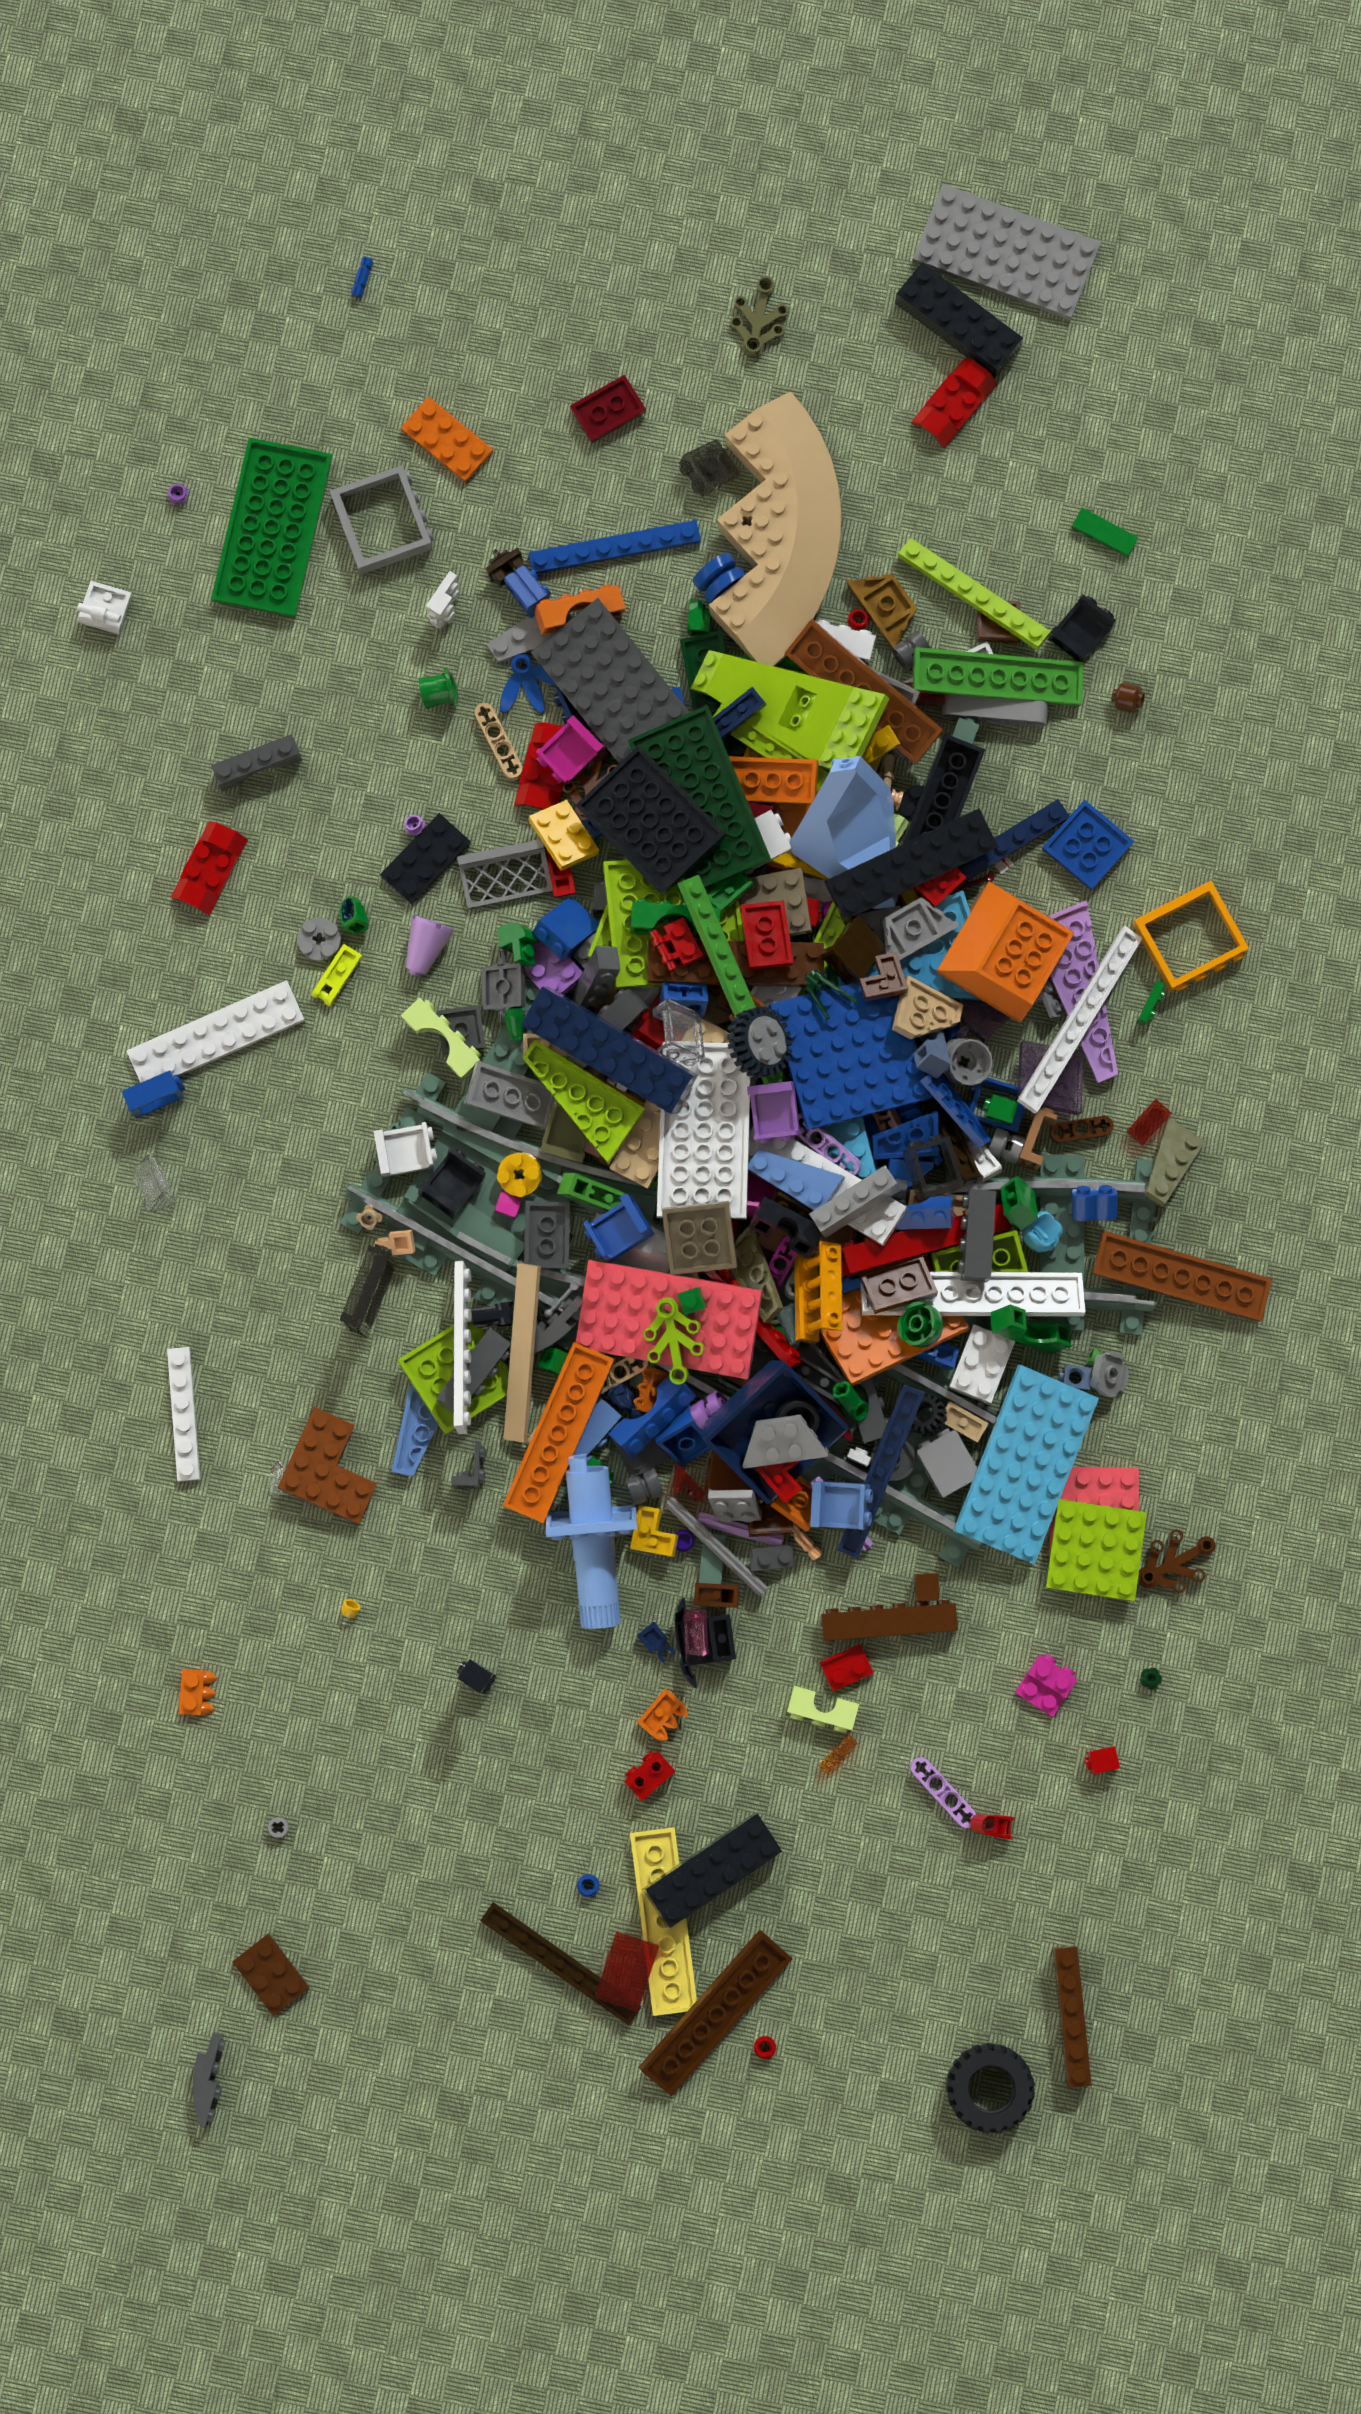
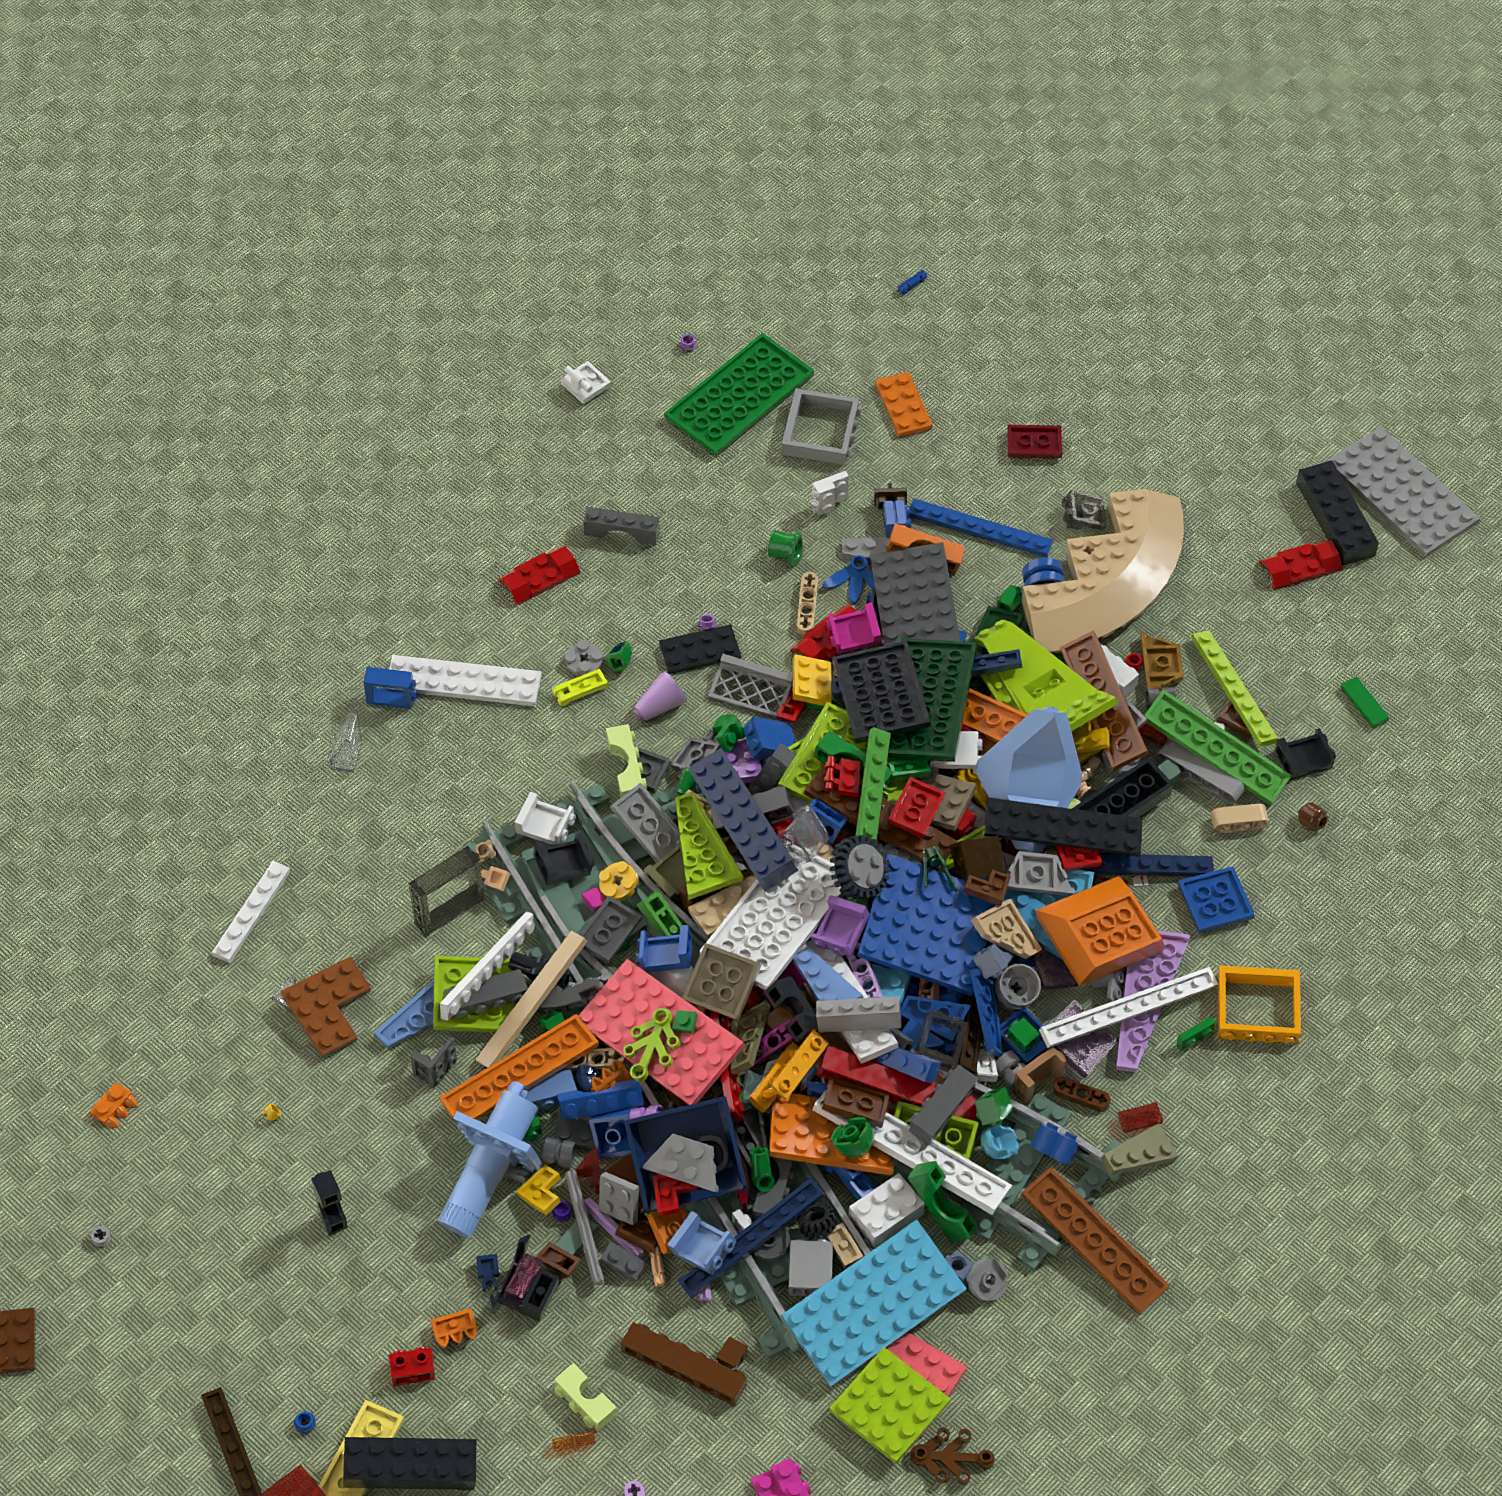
camera: 30 degrees right, 25 degrees down
(758, 320) = (1172, 455): olive plant -> none
(846, 1667) = (626, 1380): red plate -> none
(1060, 740) = (1239, 818): none -> tan beam

